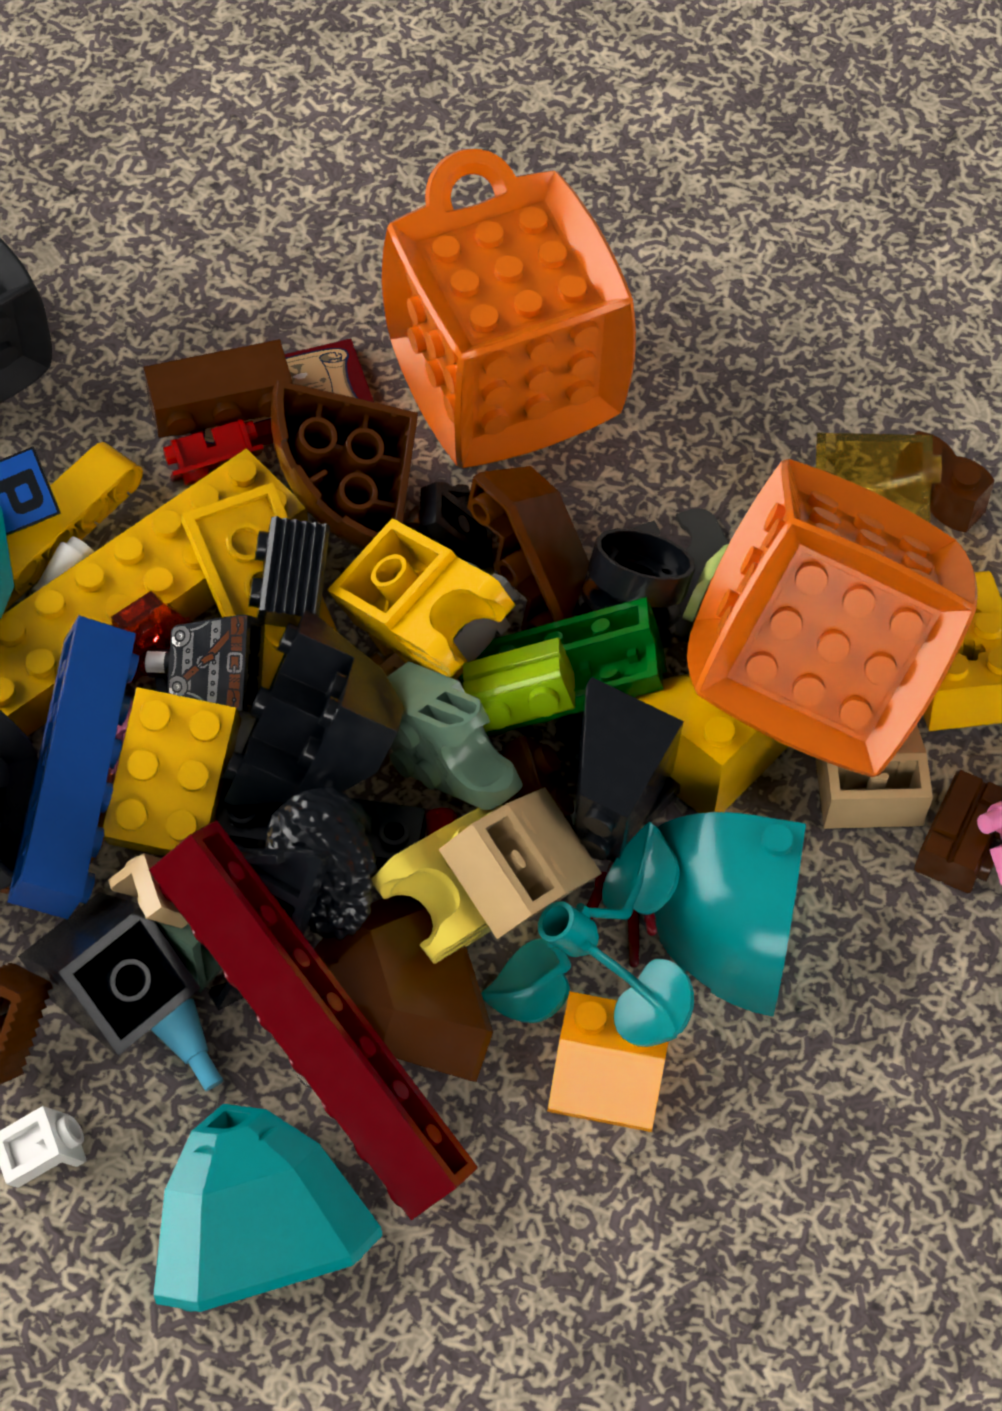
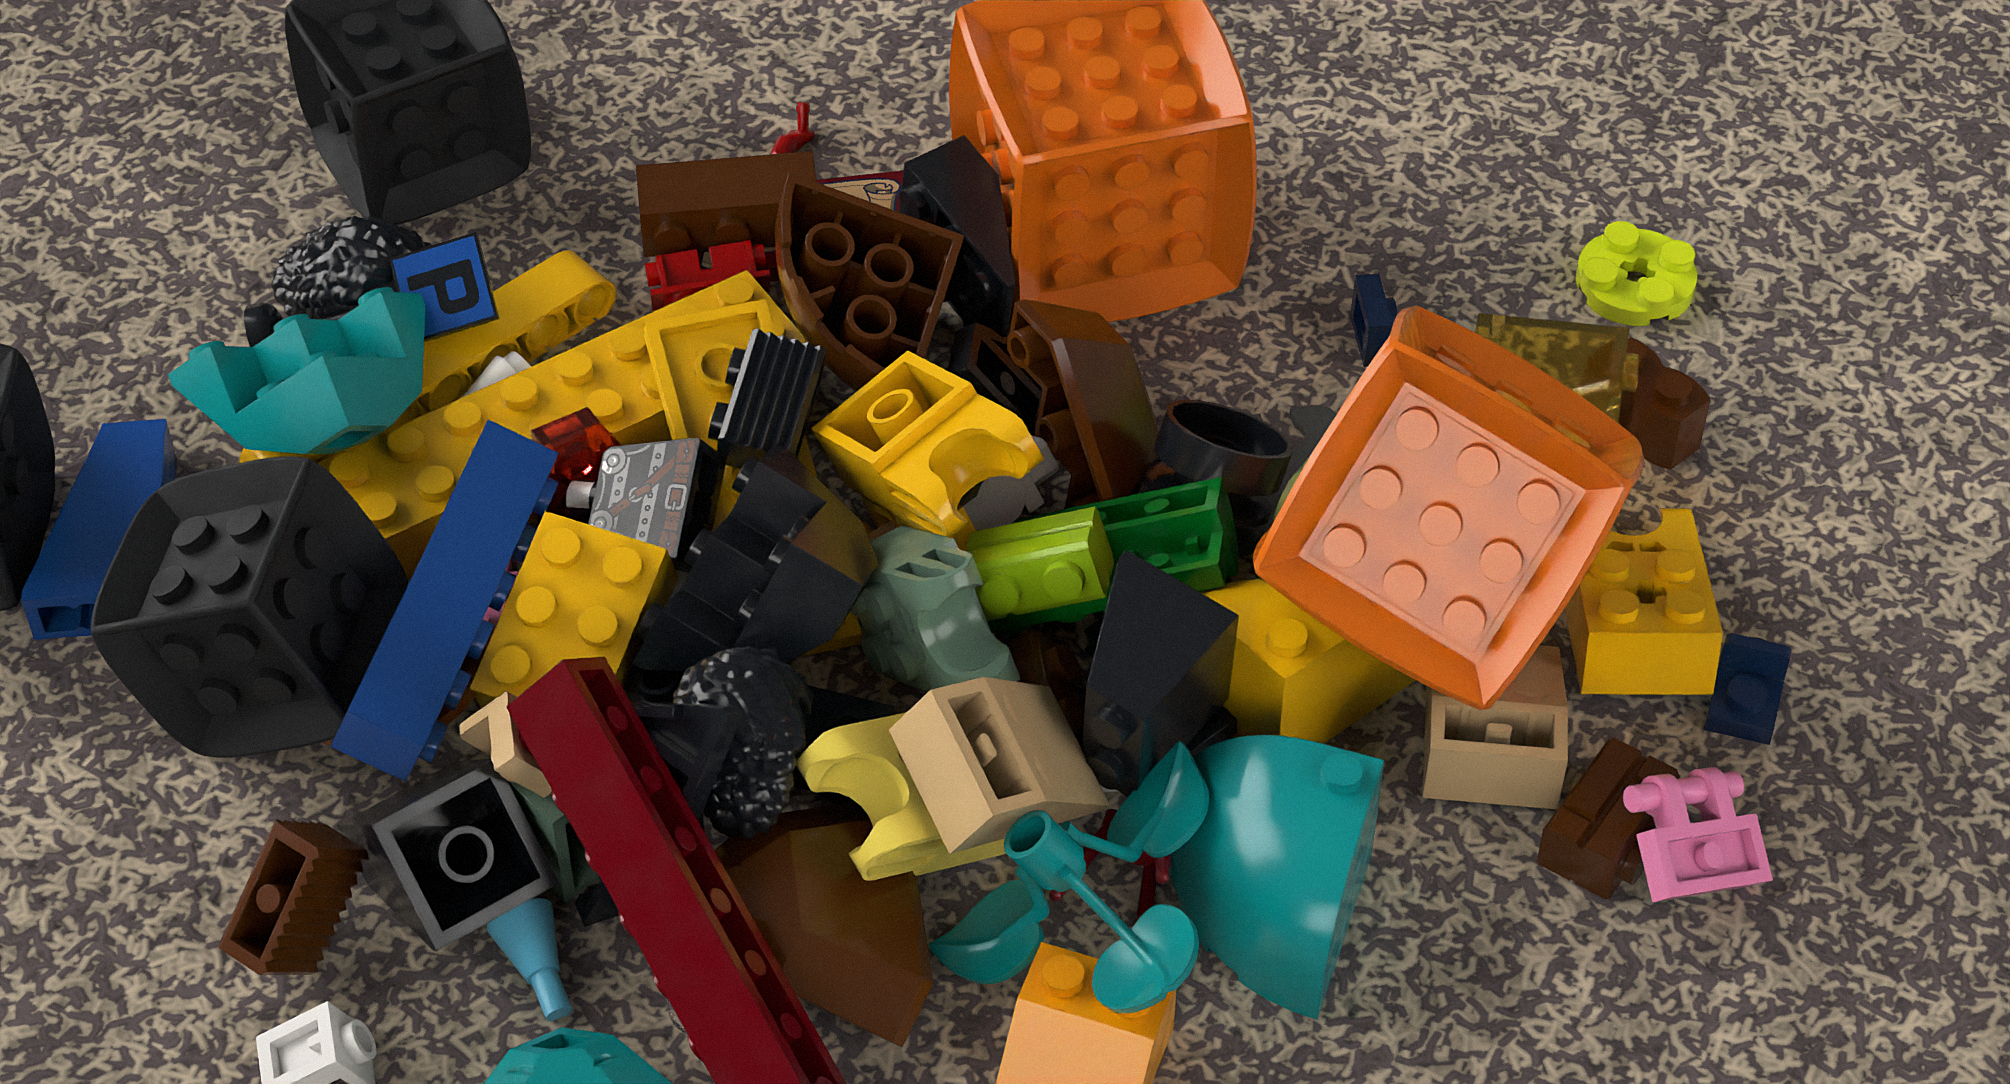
camera: 10 degrees right, 10 degrees down
(254, 319) = (796, 138): none -> red piece
(405, 375) = (963, 194): none -> black slope
(734, 441) = (1371, 315): none -> dark blue bracket
(925, 349) = (1624, 249): none -> neon yellow plate

